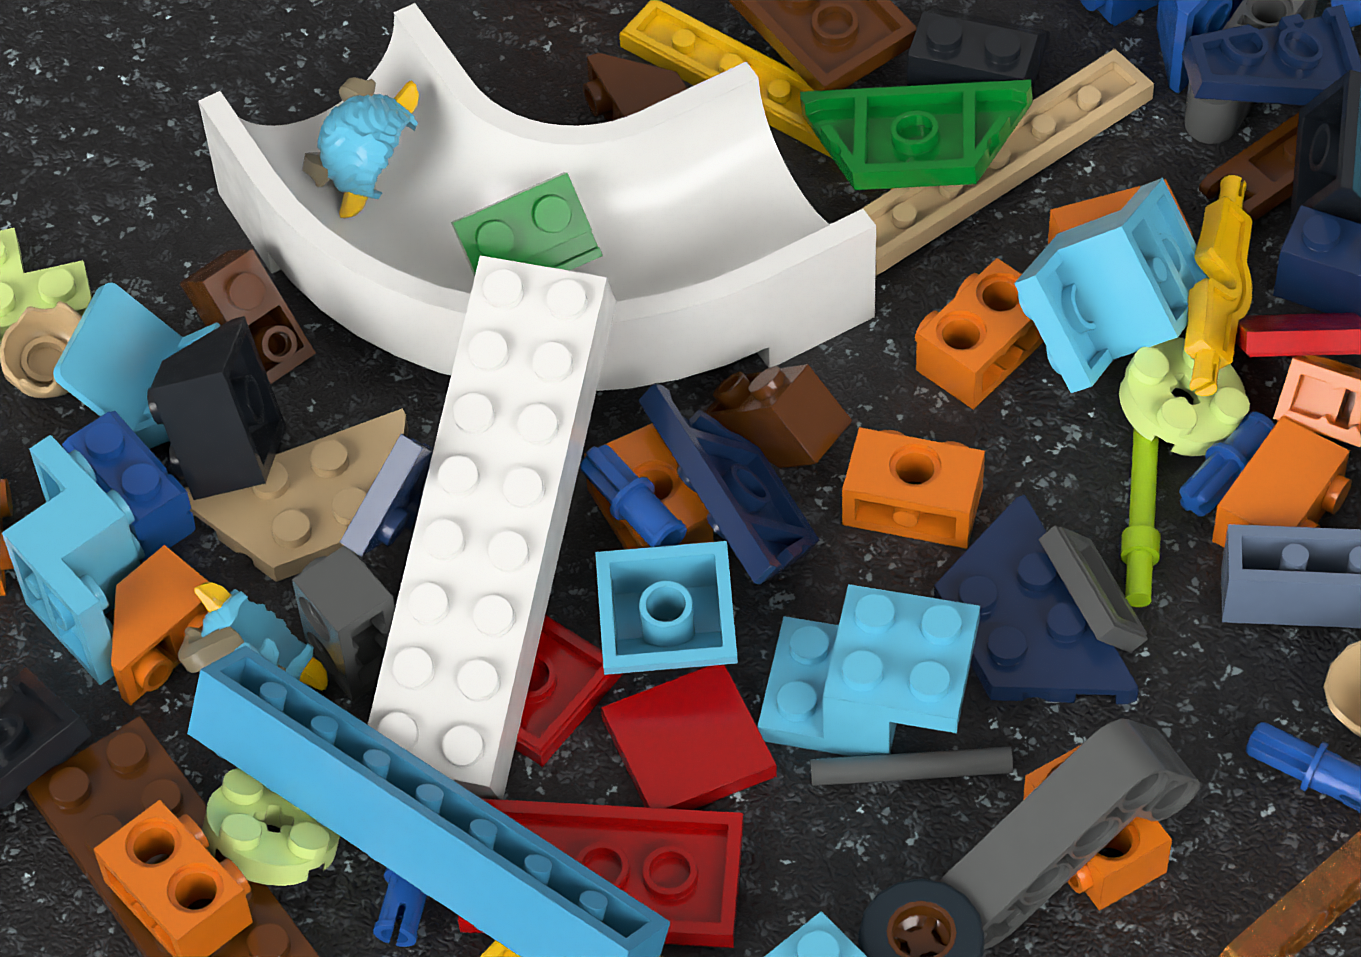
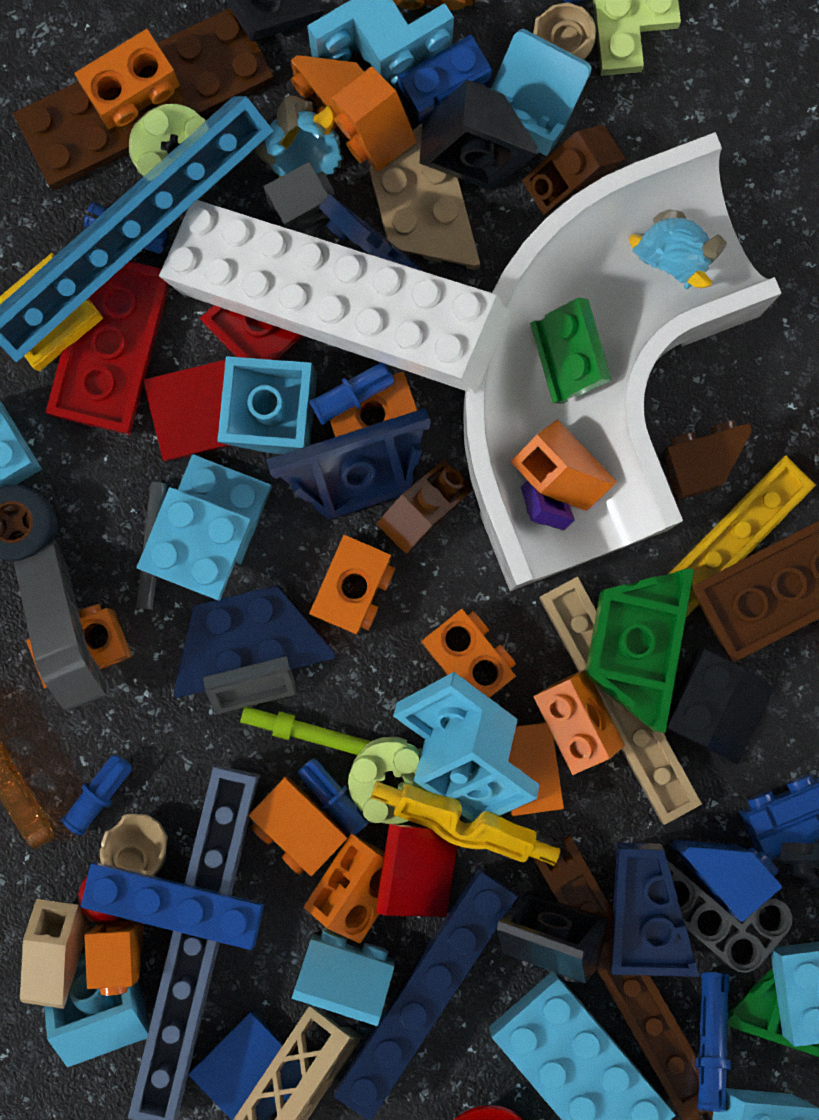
camera: 95 degrees right, 30 degrees up
(207, 537) = (373, 120): none -> orange brick
(689, 230) = (563, 468): none -> orange slope
(749, 239) = (546, 509): none -> dark purple plate
(1040, 180) = (579, 722): none -> orange brick

